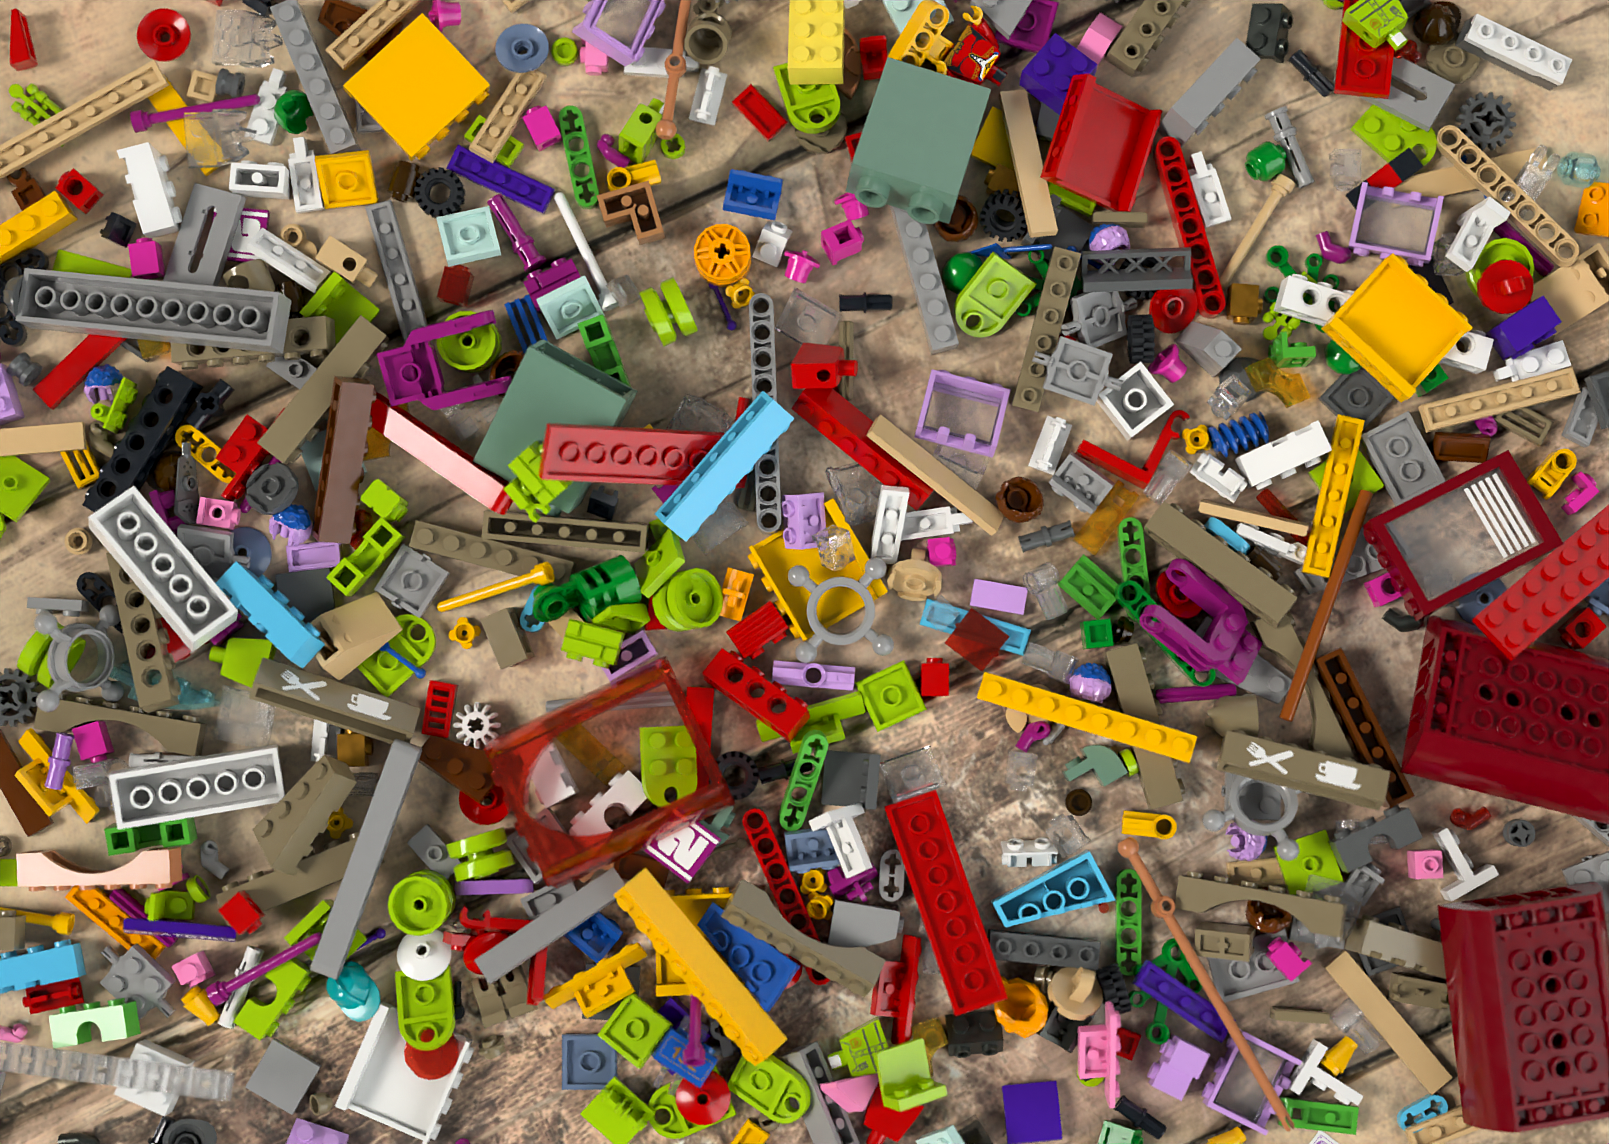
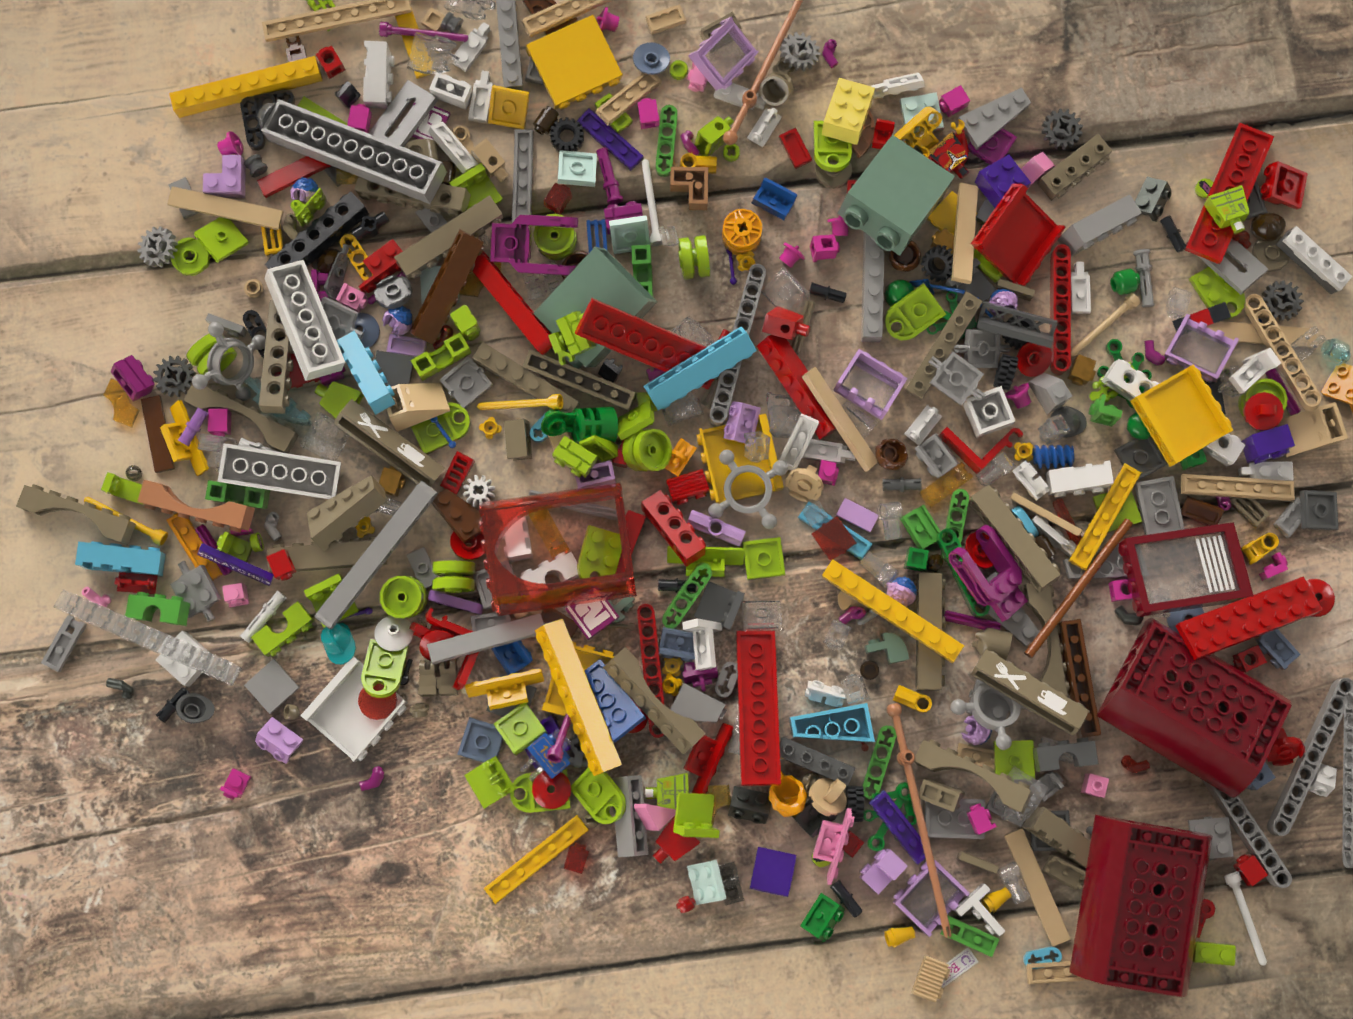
camera: 15 degrees right, 5 degrees down
(199, 1004) = (232, 619): yellow cone -> none
(220, 991) = (249, 614): magenta piece -> none
(292, 111) = (487, 53): green hair -> none
(324, 740) = (374, 467): white hinge -> none
(749, 767) = (653, 578): black tyre -> none
(772, 243) = (777, 235): white bracket -> none
(934, 677) = (797, 555): red brick -> none
(1129, 762) = (912, 652): lime tile -> none
(1266, 916) = (975, 786): reddish brown hair -> none
(1269, 378) = (1084, 424): clear yellow tile -> none
(1461, 866) = (1119, 794): white bracket -> none
(1525, 833) = (1170, 785): dark grey wheel -> none

